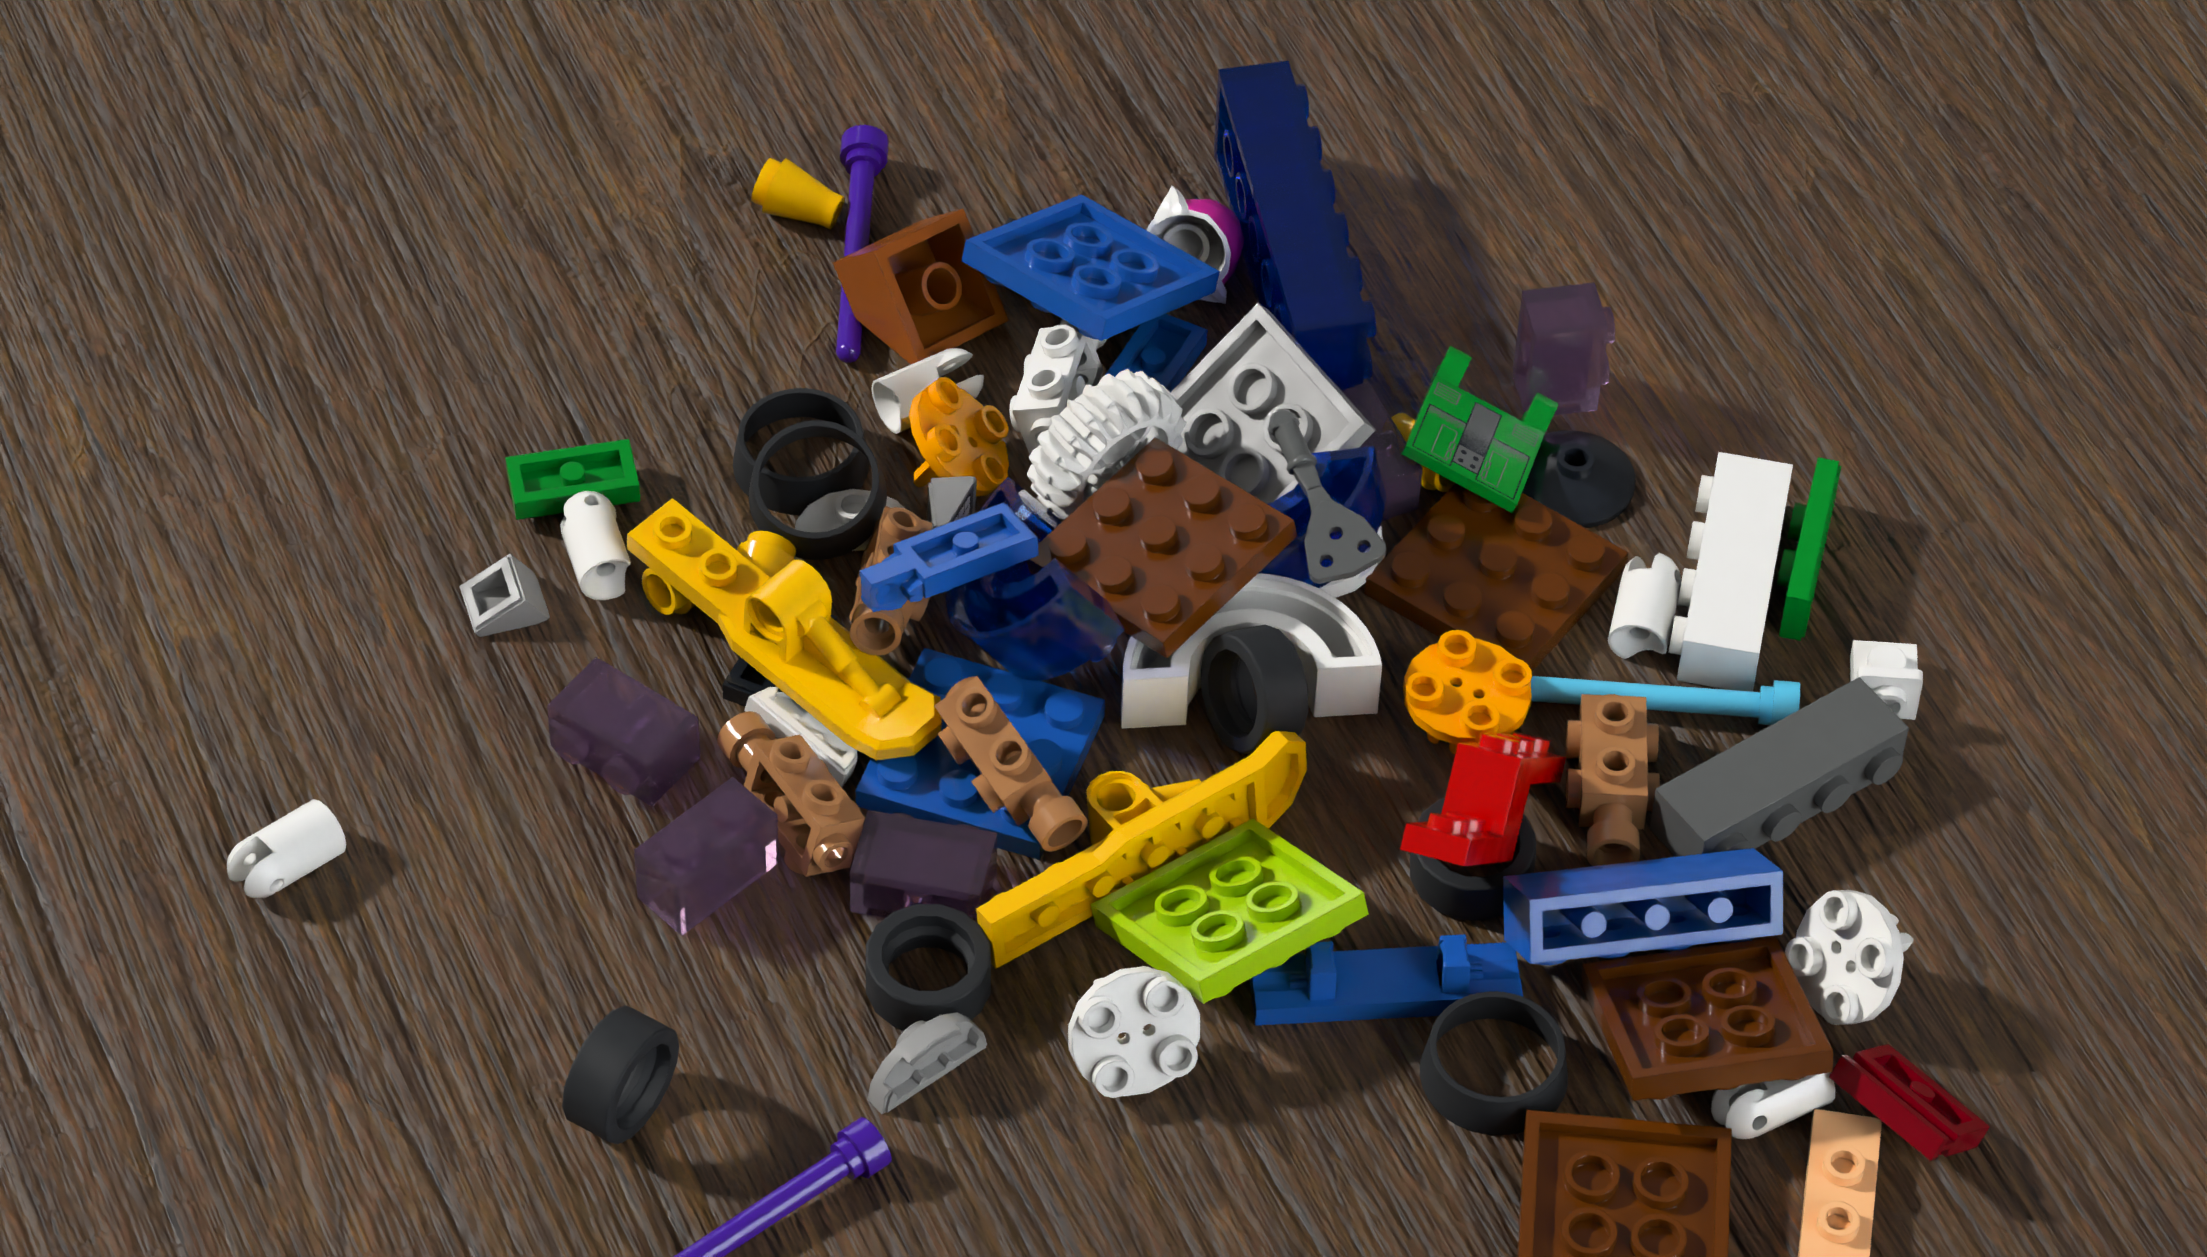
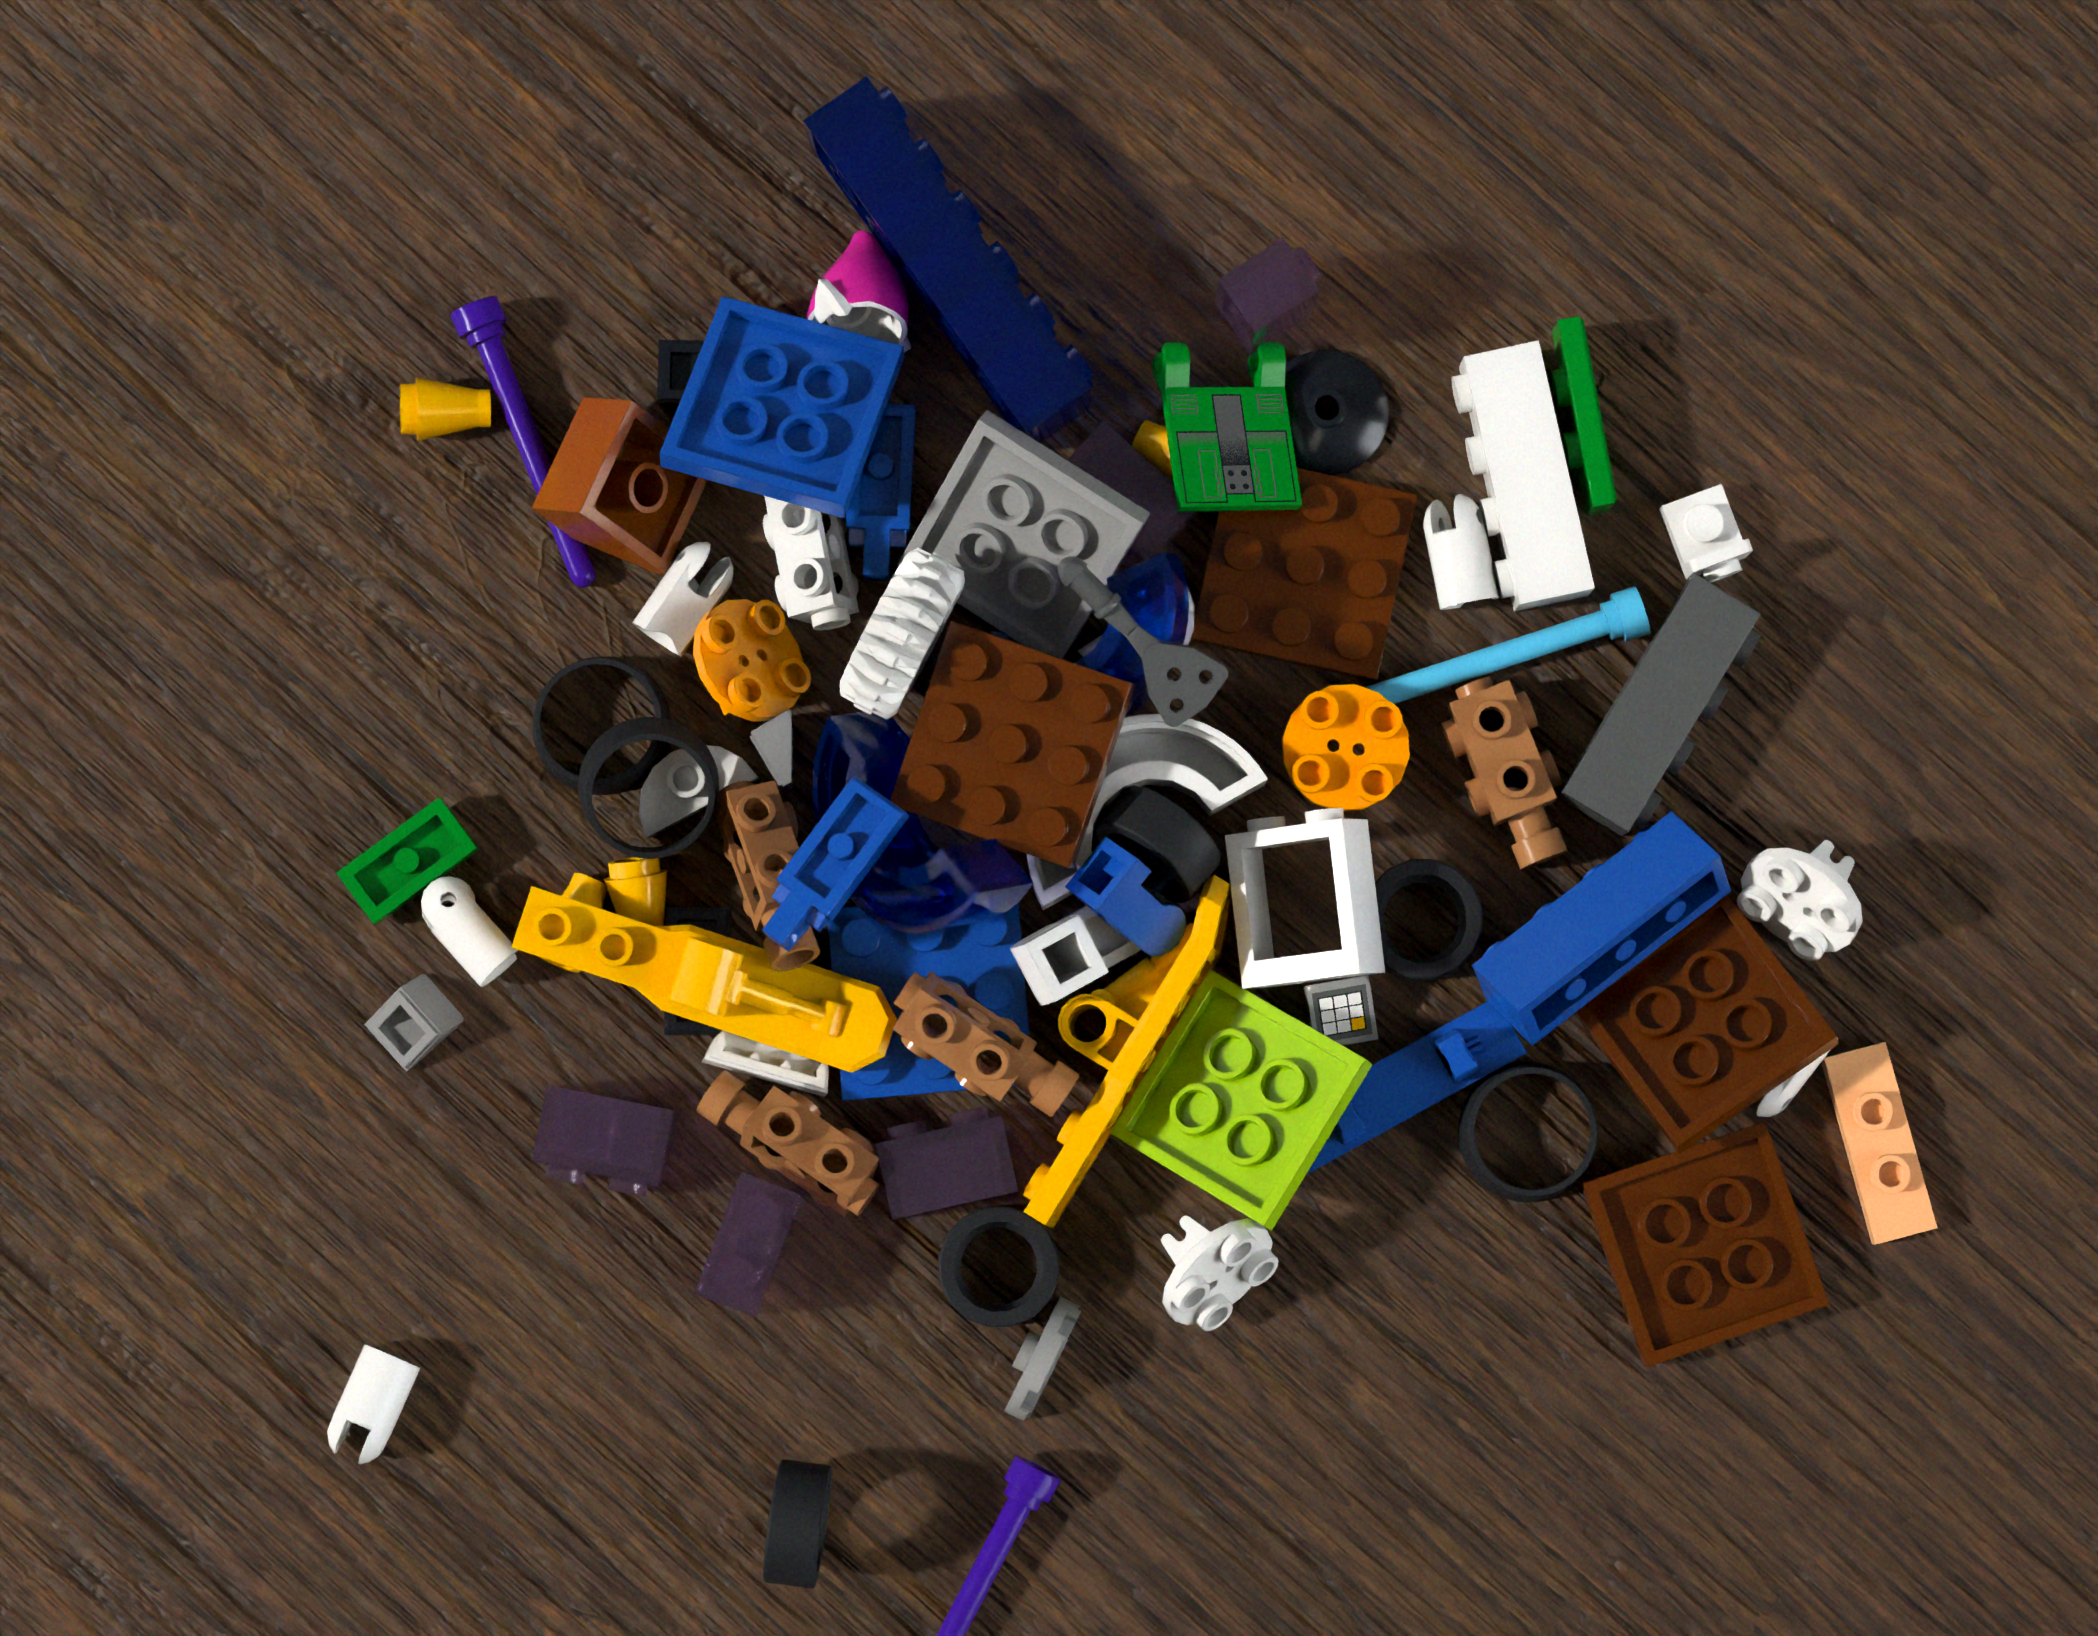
camera: 20 degrees left, 35 degrees up
(1122, 734) = (1069, 954): none -> white brick
(1202, 706) = (1113, 890): none -> blue leg
(1341, 735) = (1354, 891): none -> white window
(1381, 887) = (1342, 1010): none -> slope
(1485, 800) = (1429, 910): red bracket -> none
(1909, 1102) = (1906, 1022): dark red plate -> none

